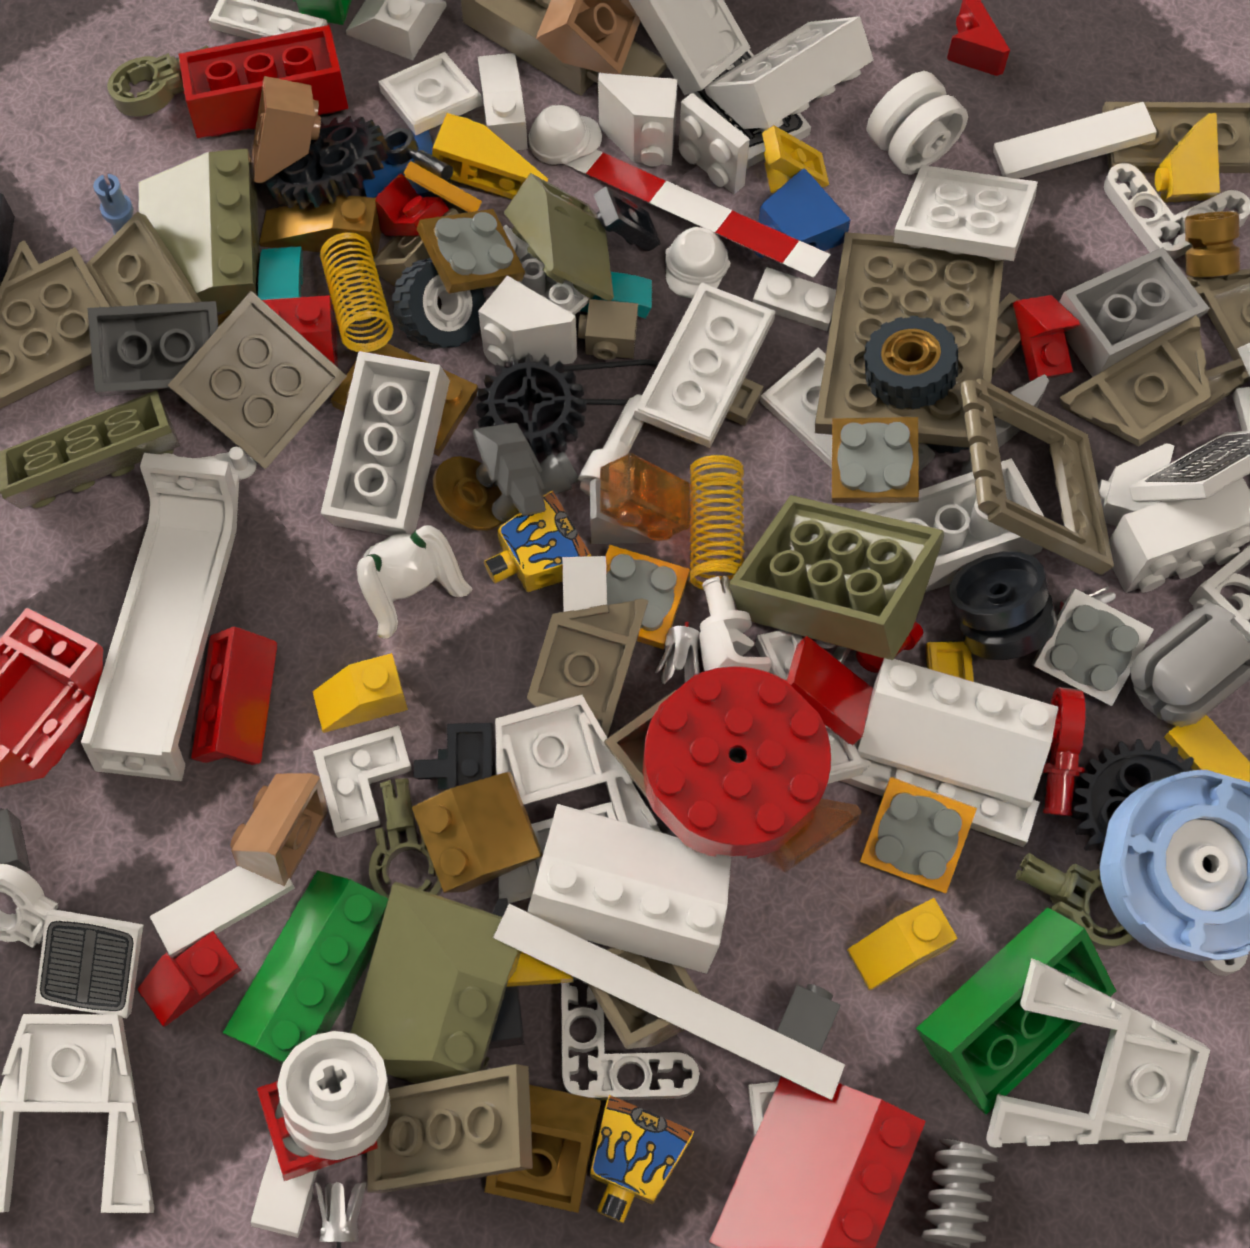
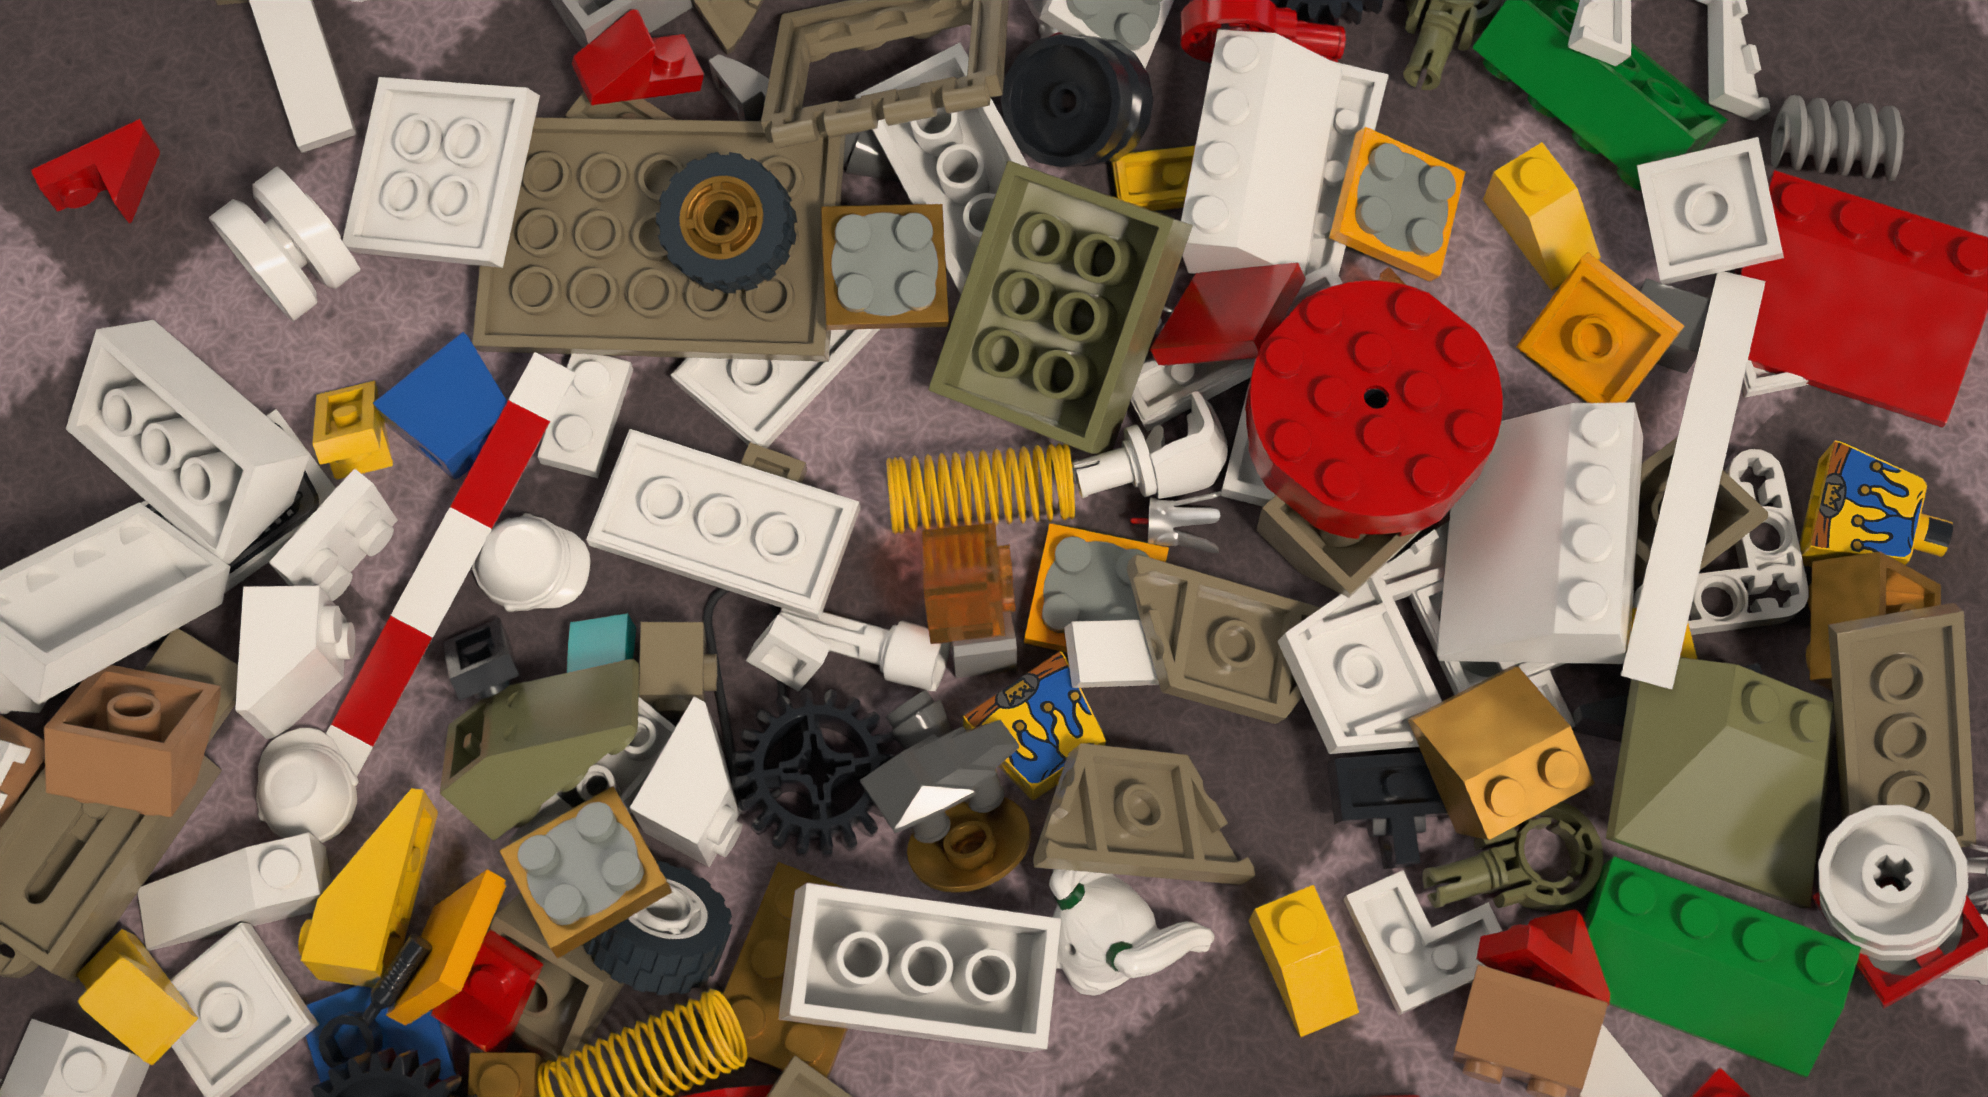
camera: 95 degrees left, 5 degrees up
(327, 854) = (1548, 951): none -> red slope
(444, 40) = (134, 998): none -> yellow slope
(468, 590) = (1136, 818): none -> dark tan wing
(615, 397) = (788, 652): none -> white plate
(796, 963) = (1599, 334): none -> light orange tile
(889, 1057) = (1710, 211): none -> white plate

